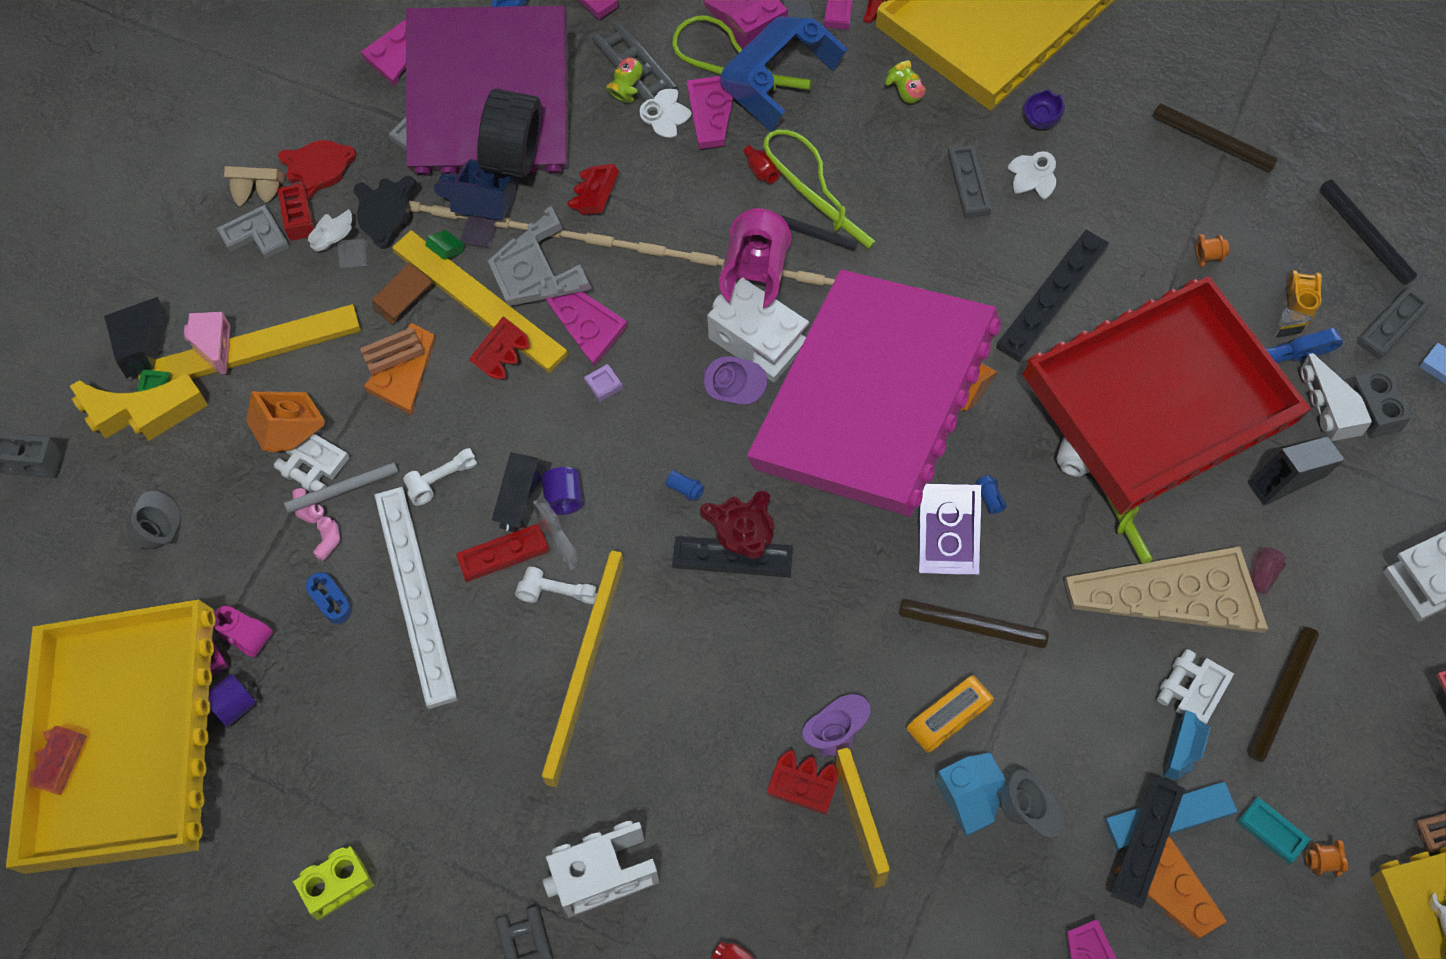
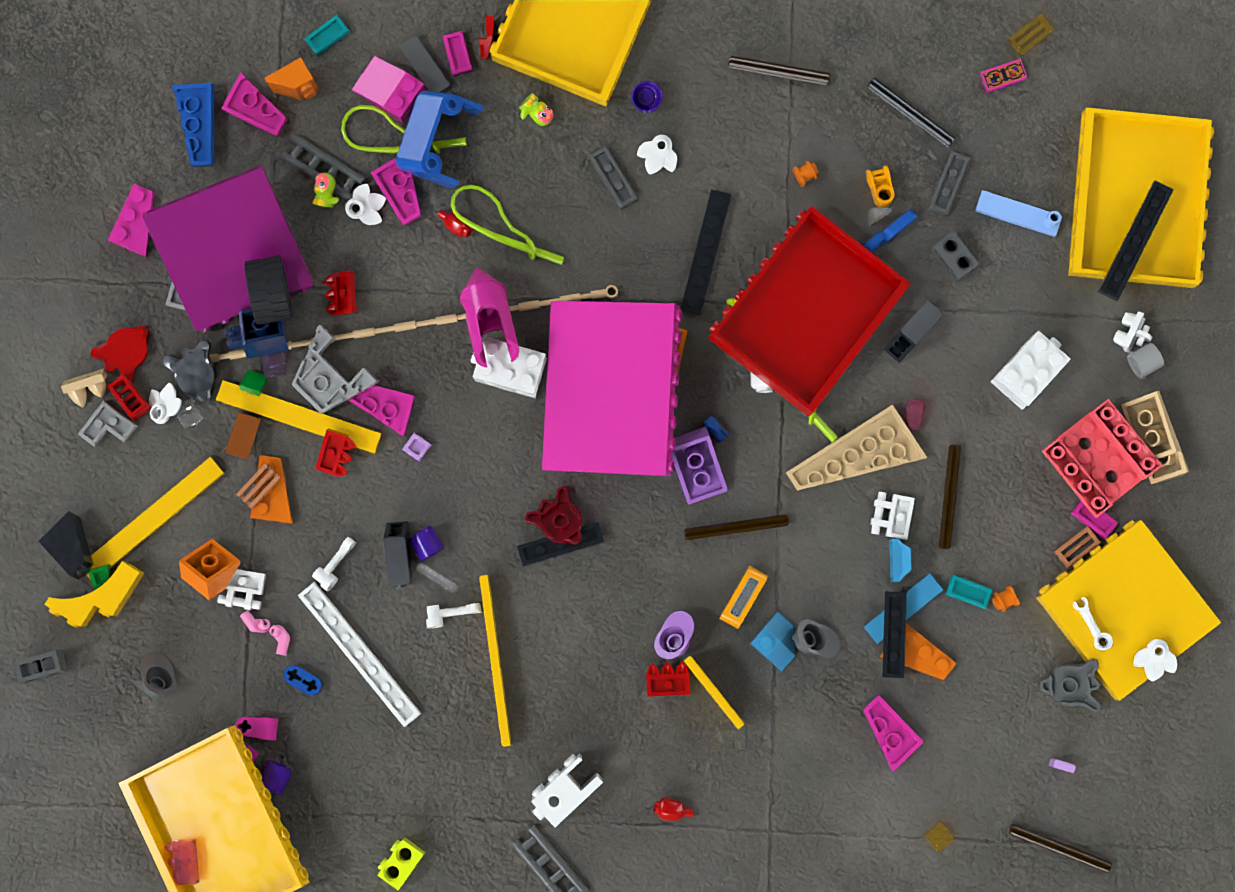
camera: 20 degrees left, 20 degrees up
(209, 338) = (124, 528): bright pink slope -> none
(340, 488) = (272, 600): light grey bar -> none
(502, 552) = (404, 601): red tile -> none
(685, 485) = (507, 504): blue pin -> none
(735, 380) = (508, 412): medium lavender piece -> none
(821, 234) = (520, 265): black bar -> none
(1339, 406) = (928, 269): white slope -> none

